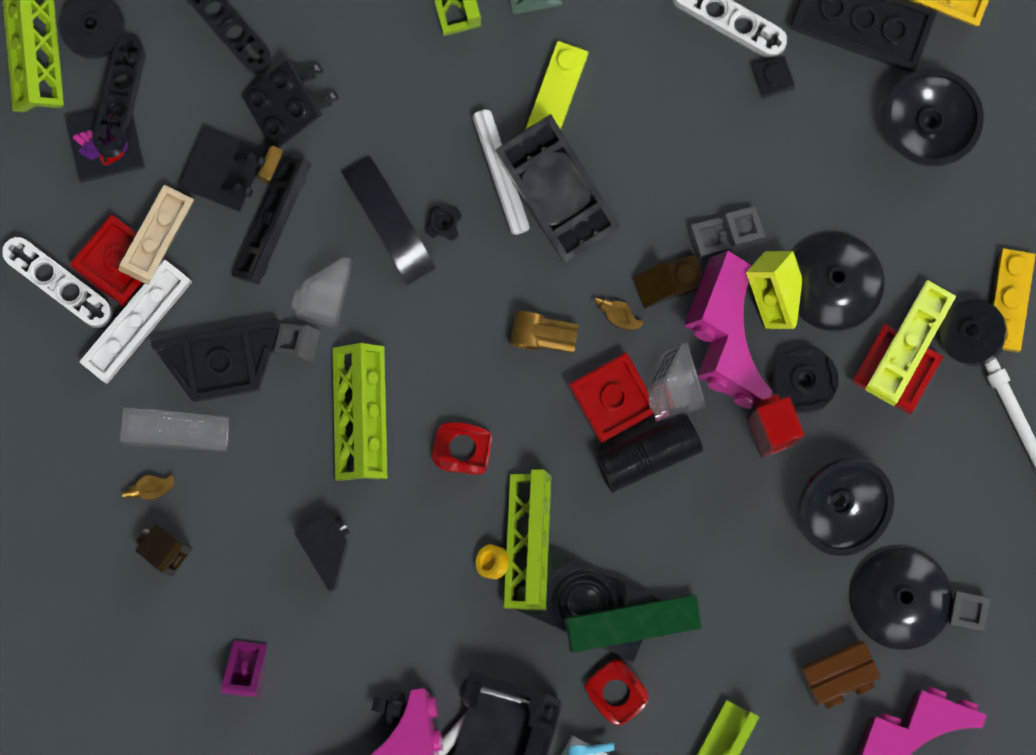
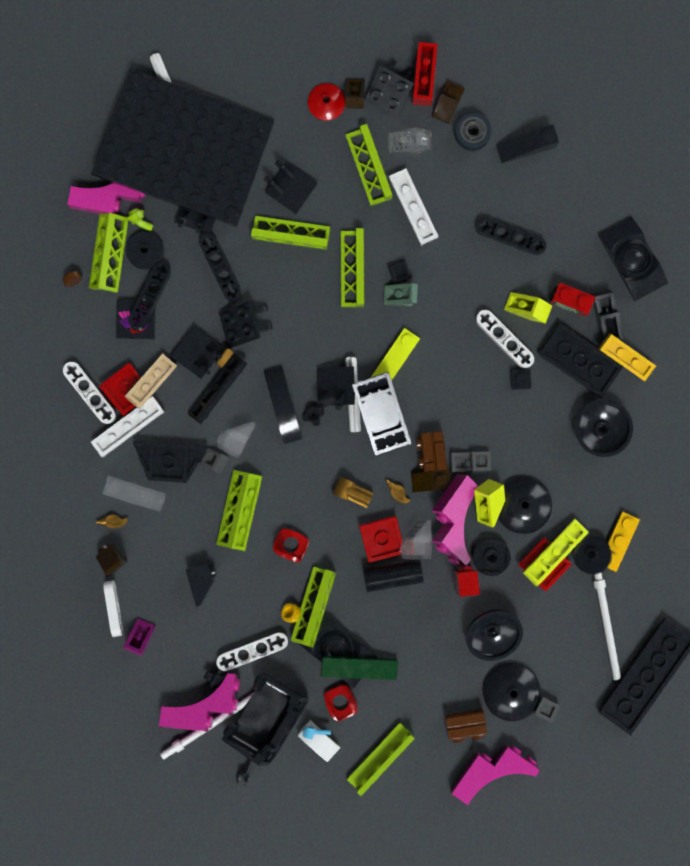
camera: 15 degrees right, 5 degrees up
(187, 633) = (113, 608): none -> white beam
(445, 647) = (253, 654): none -> white beam
(468, 164) = (335, 387): none -> black plate
(658, 229) = (432, 451): none -> reddish brown brick

